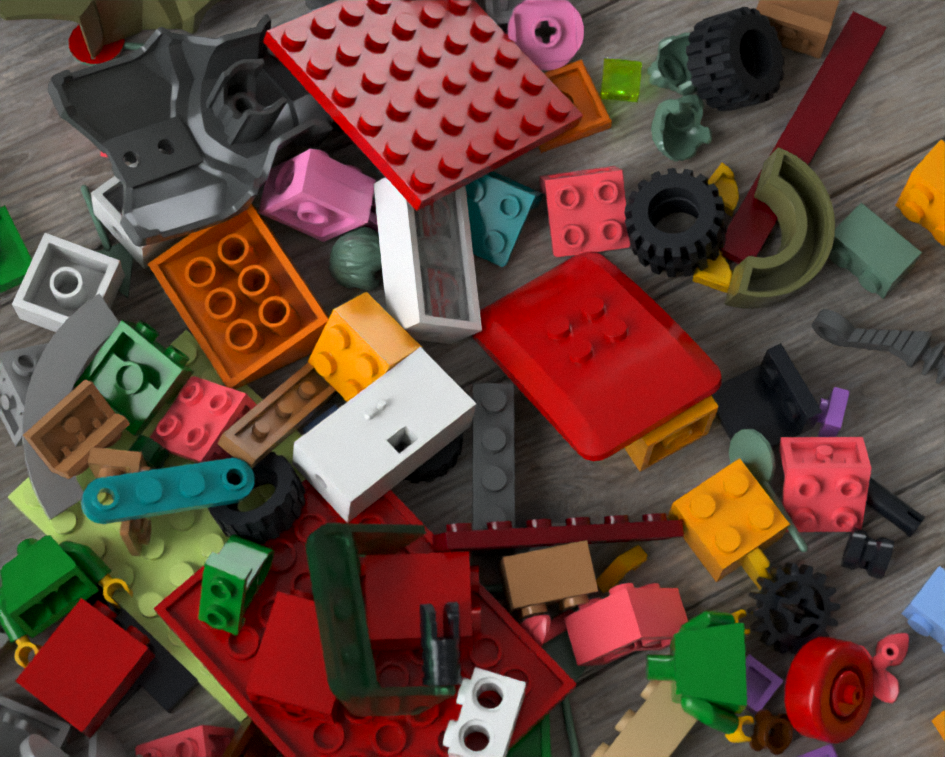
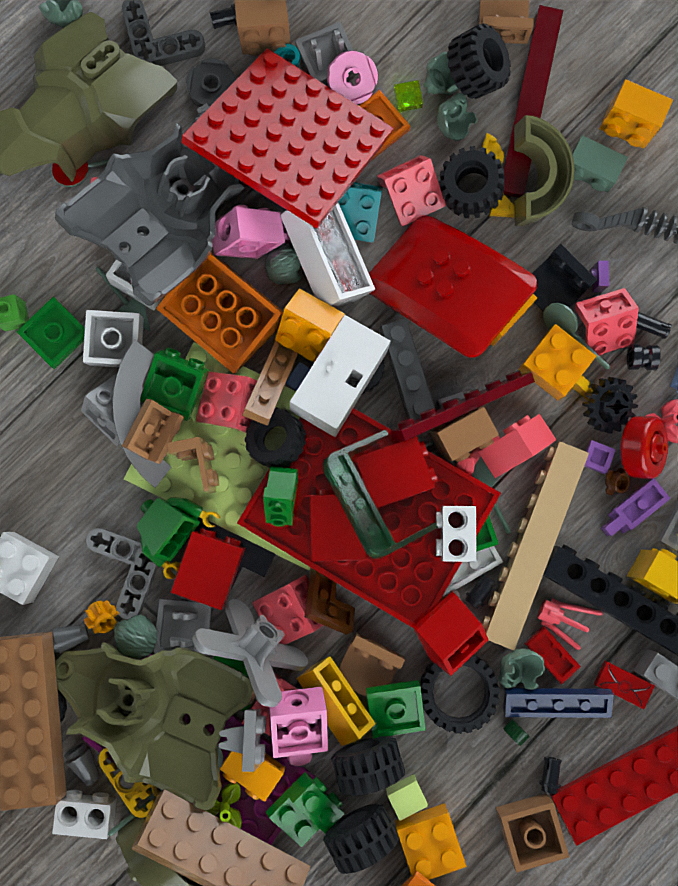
camera: 15 degrees left, 15 degrees up
(153, 453) = (199, 429): dark green axle -> none
(167, 490) = (223, 455): teal plate -> none
(440, 654) = (420, 504): black hinge -> none
(620, 567) = (502, 410): yellow tile -> none
(708, 671) = (575, 459): green torso -> none

